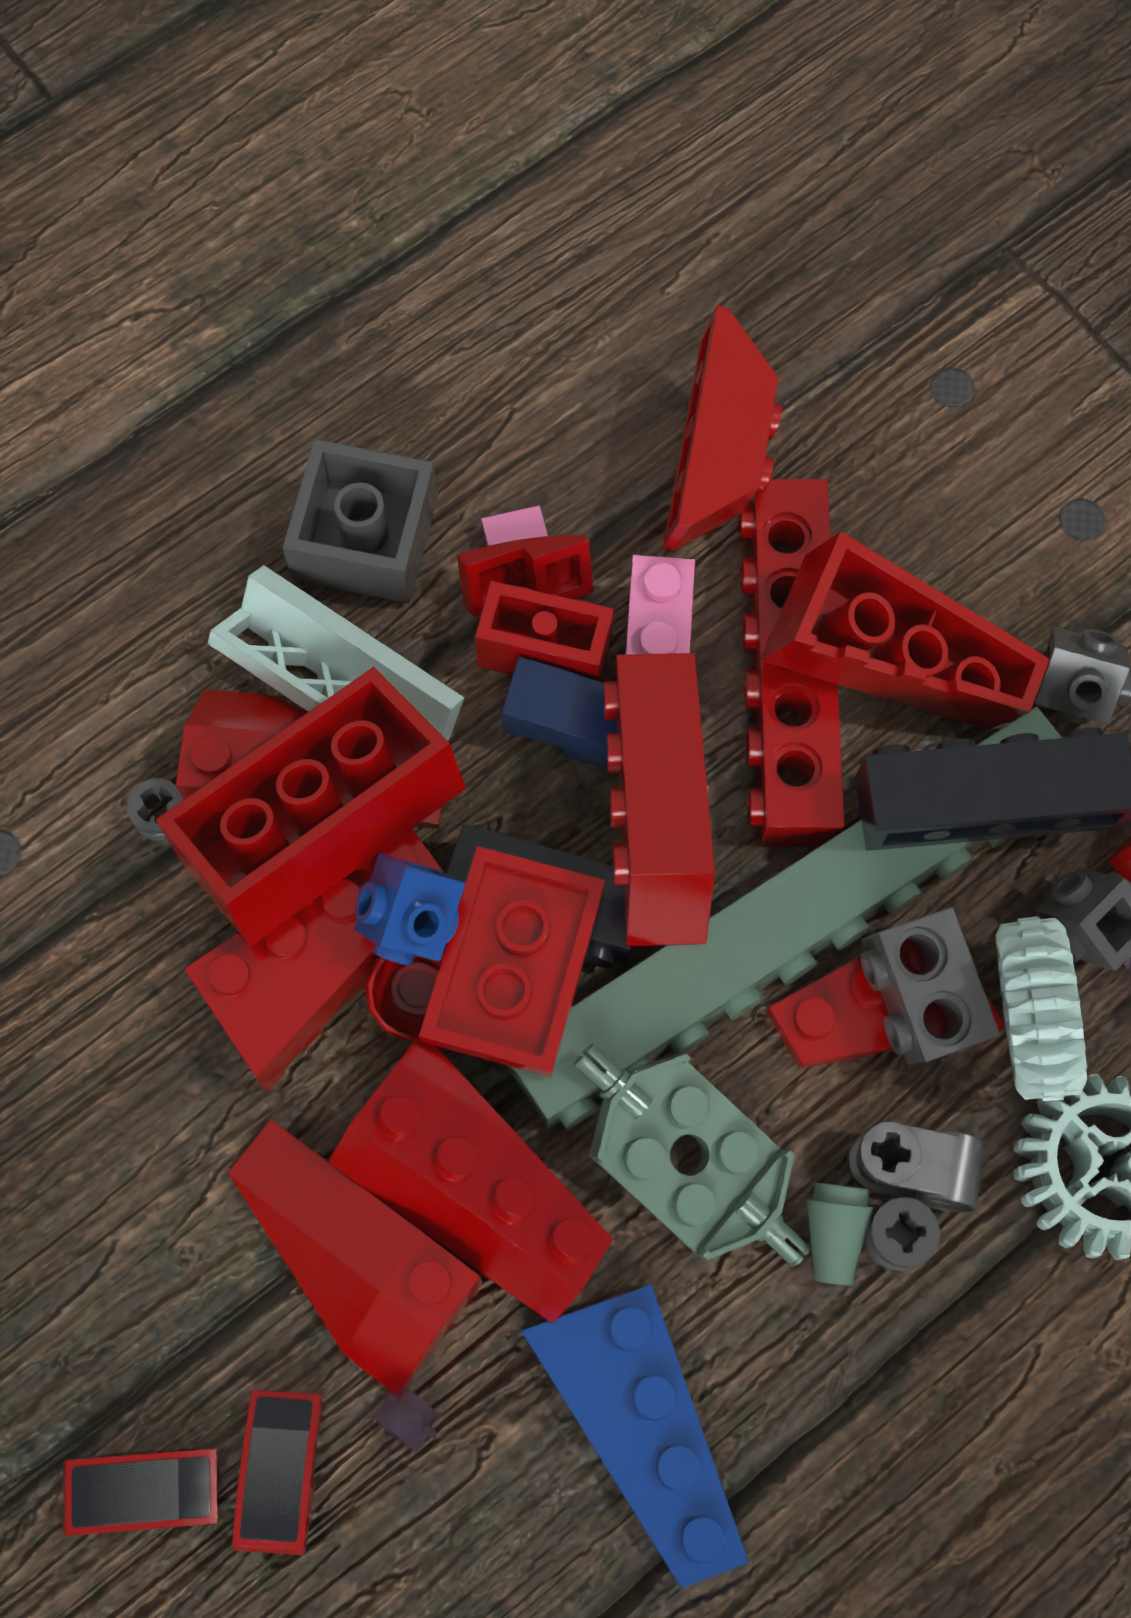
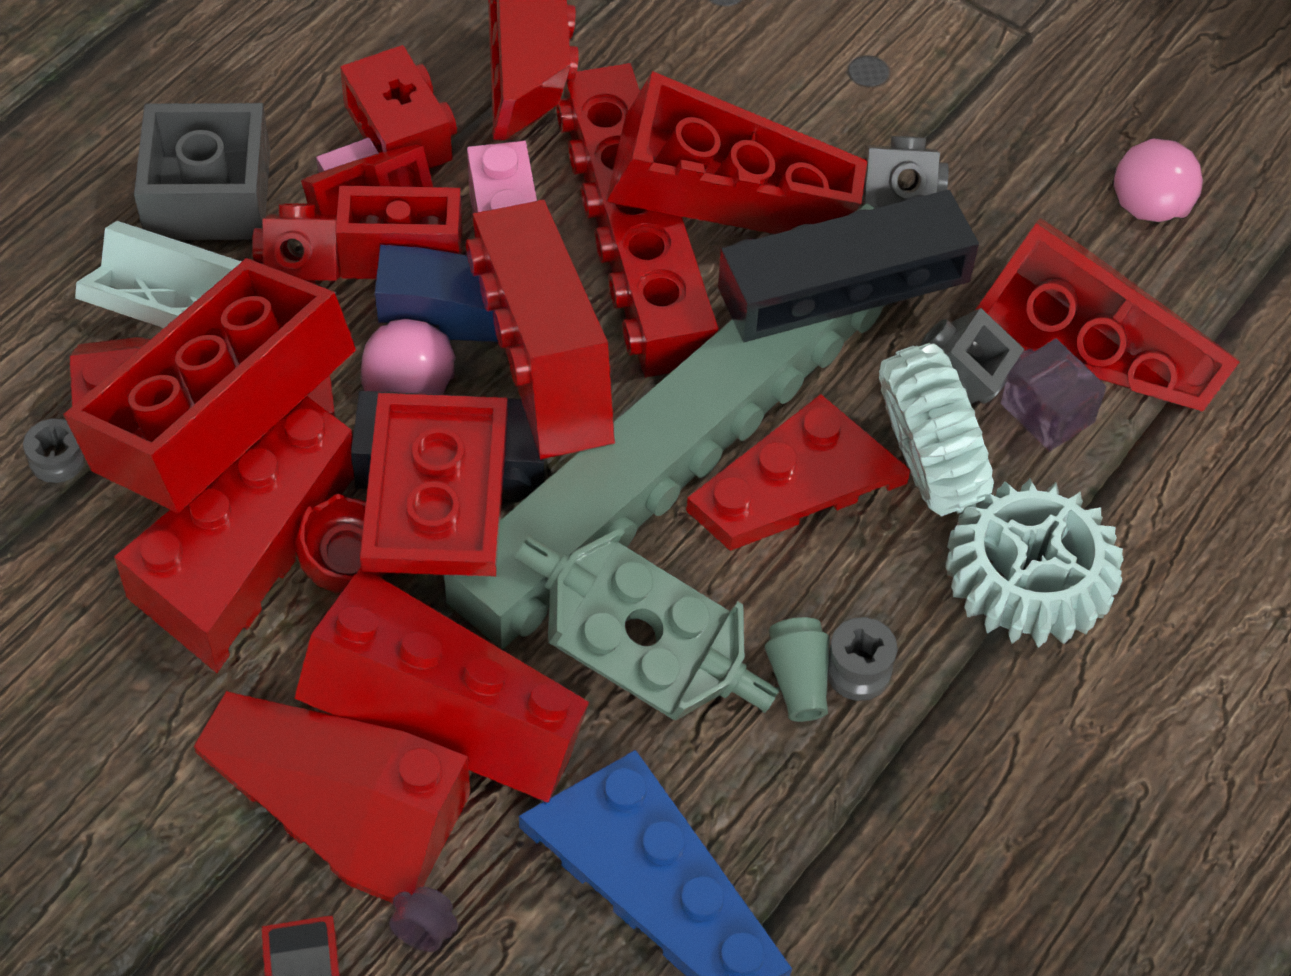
camera: 15 degrees left, 15 degrees down
(408, 910) = (325, 447): blue brick -> none
(439, 630) = (315, 232): none -> red brick
(521, 787) = (407, 359): none -> bright pink hair
(573, 450) = (397, 105): none -> red brick
(930, 1165) = (863, 586): flat silver piece -> none
(945, 980) = (844, 432): dark grey brick -> none

